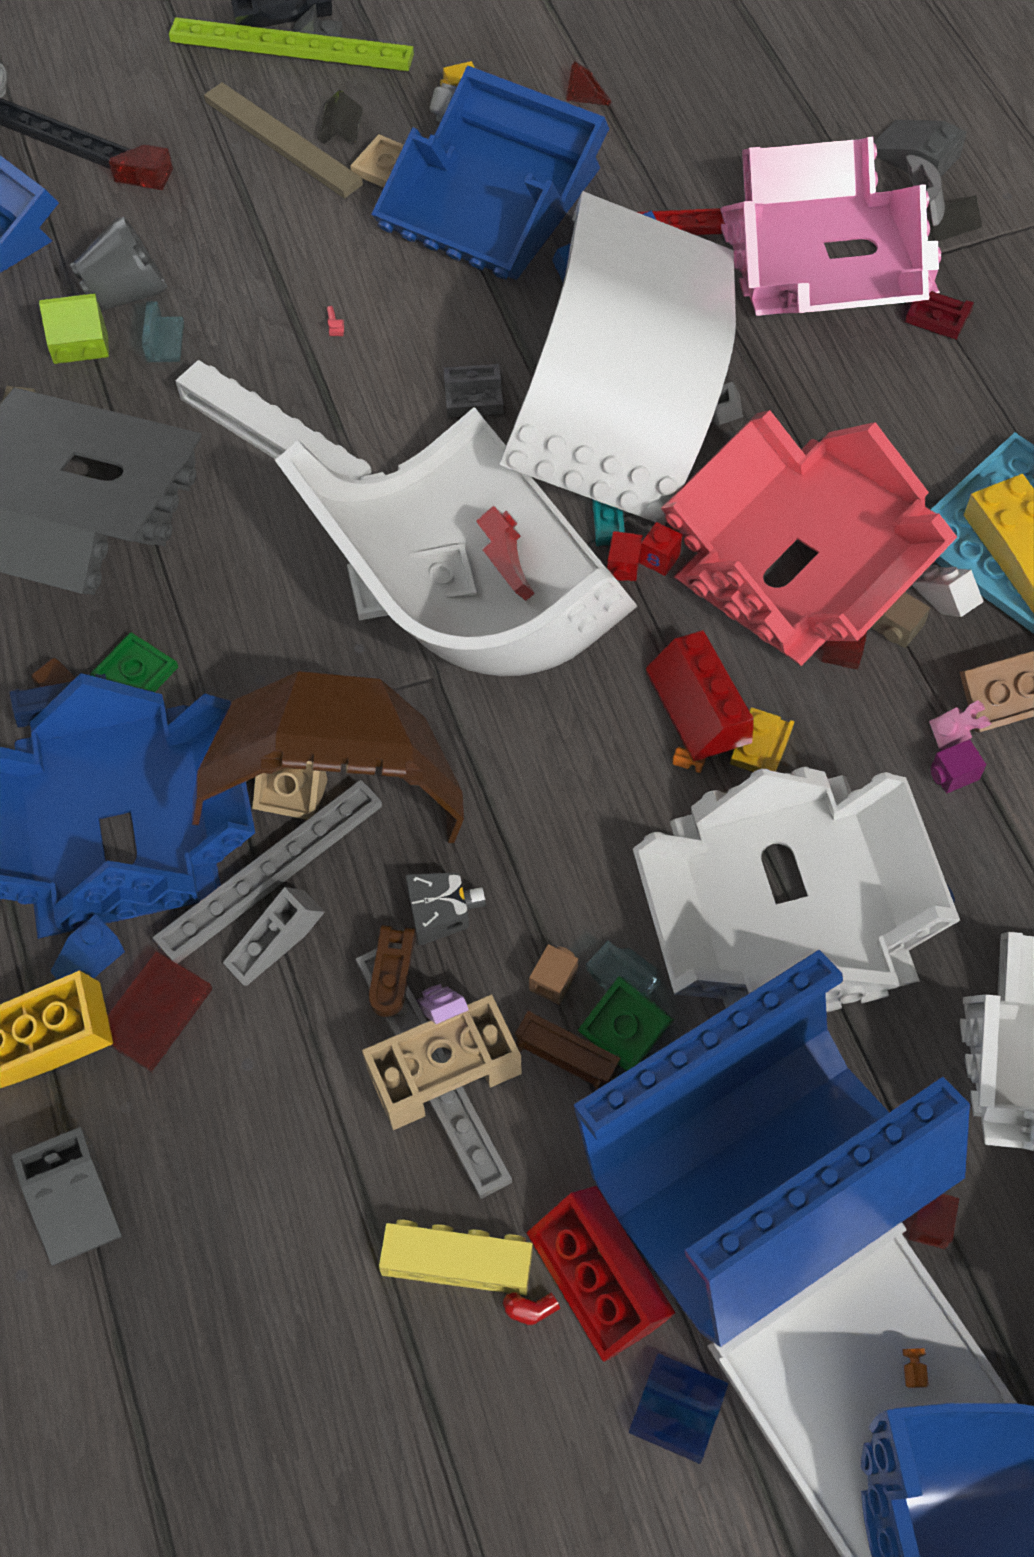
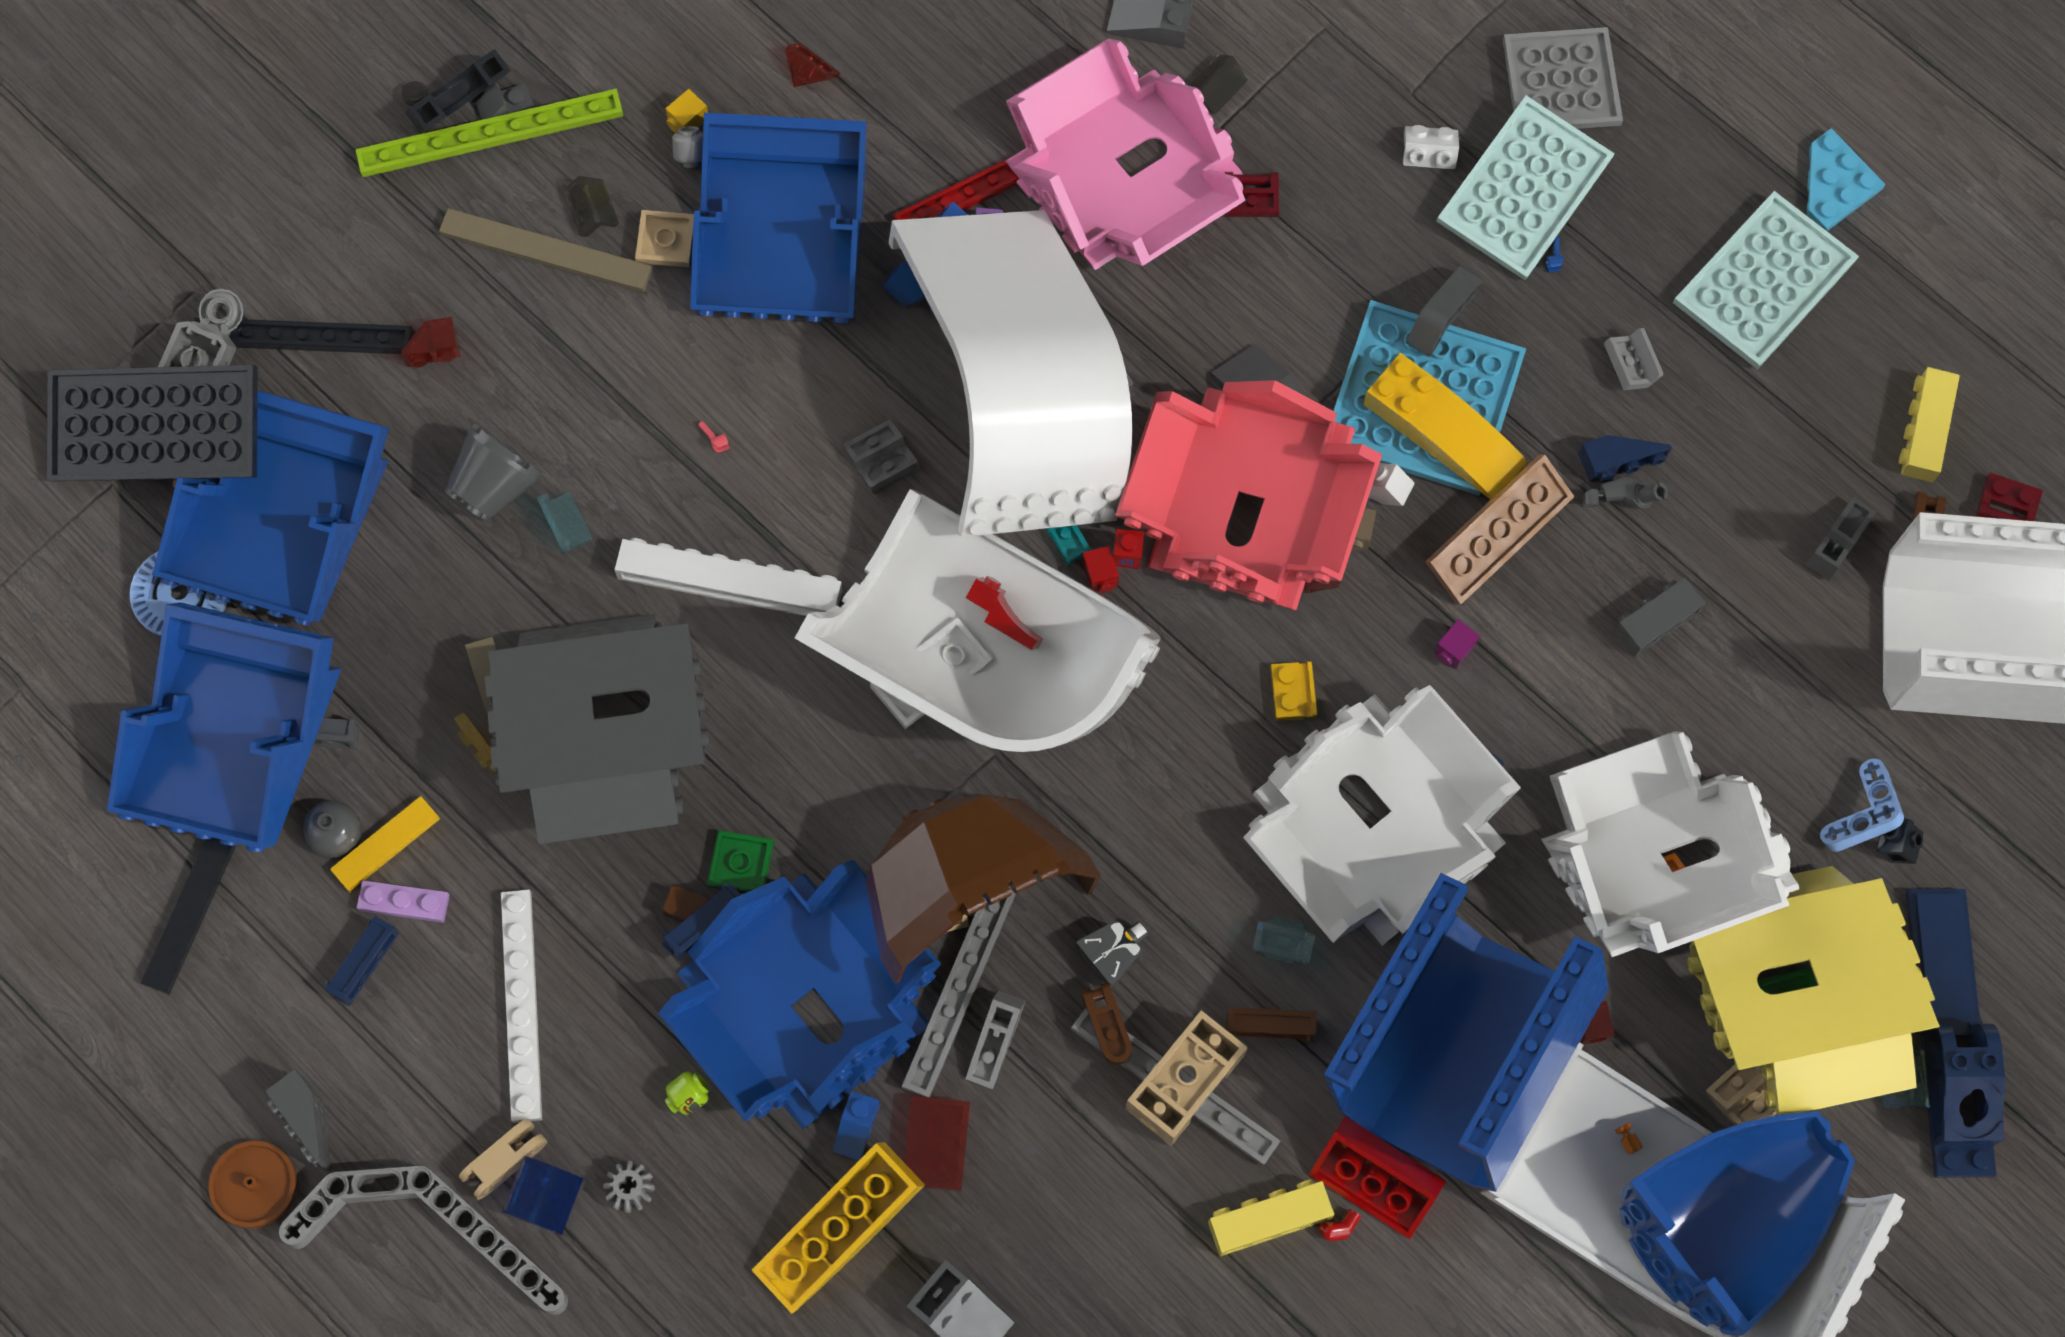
camera: 30 degrees left, 10 degrees up
(74, 328) = (486, 556): lime slope -> none
(441, 1003) = (1164, 1034): lavender plate -> none
(554, 973) = (1230, 966): medium nougat brick -> none
(626, 1023) = (1305, 981): green tile -> none
(678, 1408) = (1477, 1245): clear blue slope -> none
(682, 759) = (1239, 734): orange piece -> none
(700, 697) = (1228, 676): red slope -> none
(924, 173) = (1176, 51): light grey slope -> none
(955, 725) = (1440, 610): bright pink plate -> none

